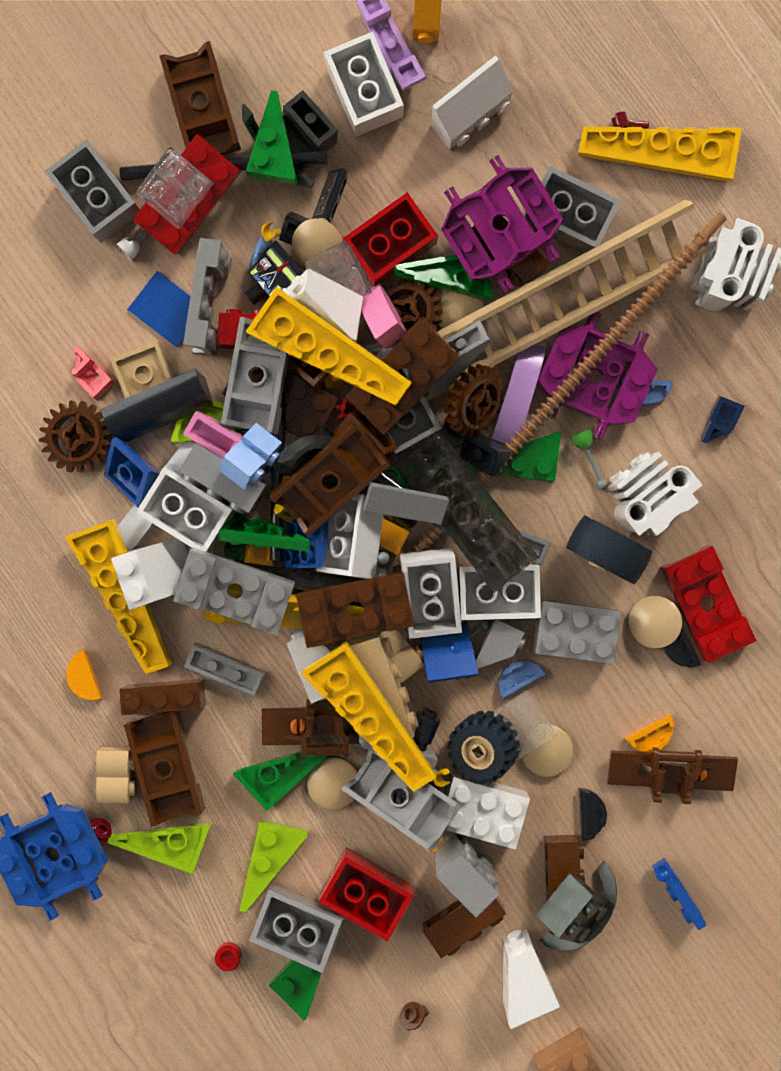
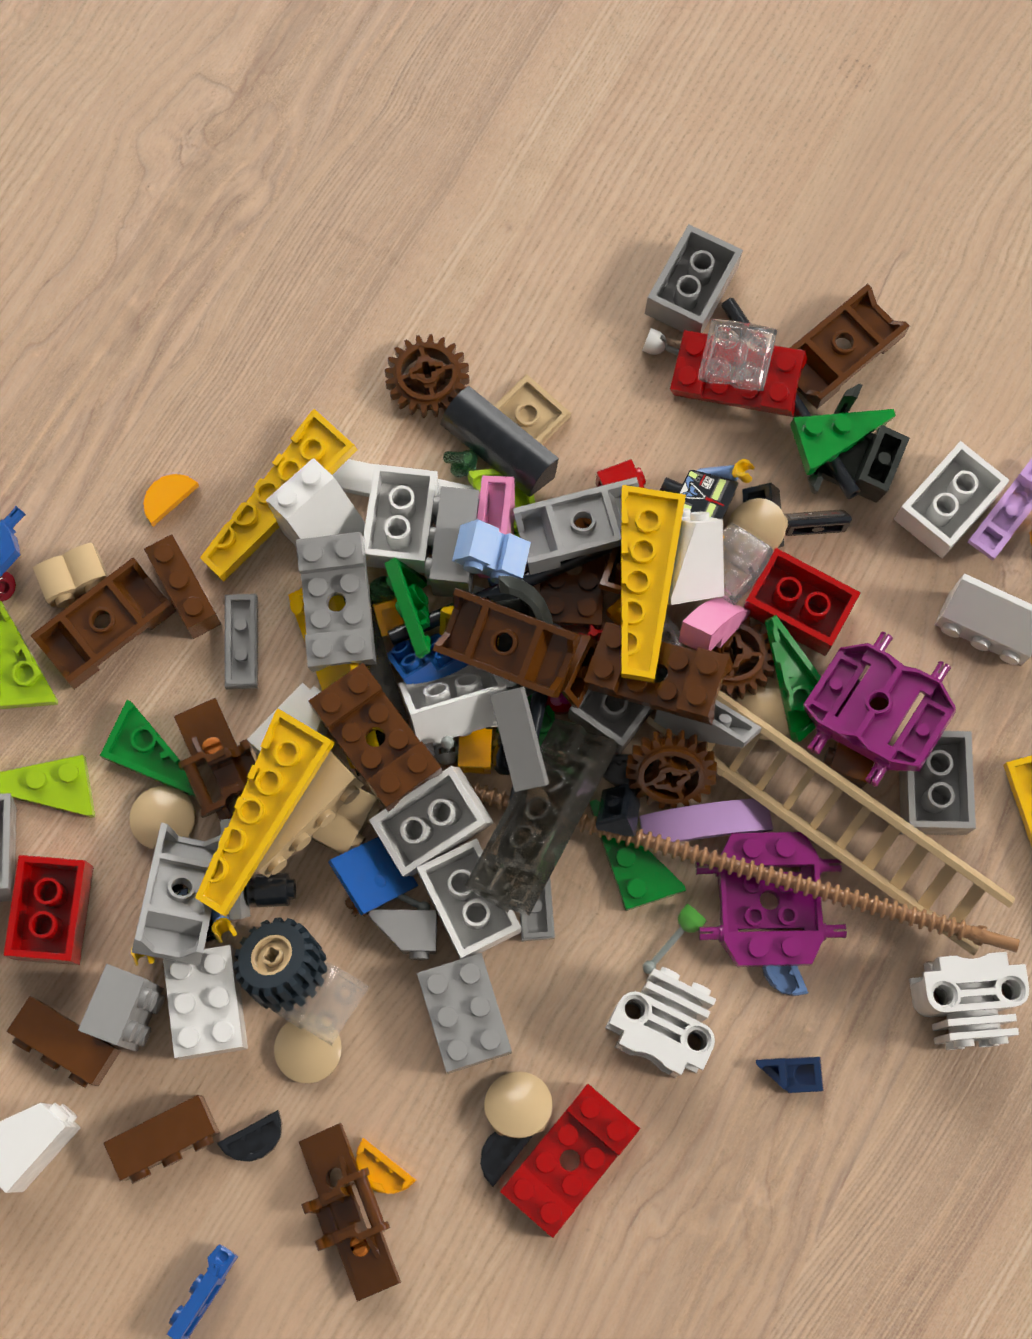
camera: 60 degrees right, 15 degrees down
(91, 375) = (500, 363): coral slope -> none
(129, 471) = (417, 441): blue slope -> none
(159, 442) = (461, 462): none -> clear green plate
(163, 308) = (609, 409): blue piece -> none
(211, 264) = (676, 426): light grey piece -> none
(517, 676) = (381, 974): medium blue tile -> none
(578, 912) = (129, 1168): pearl dark grey piece -> none
(609, 550) = (576, 1000): black wheel -> none

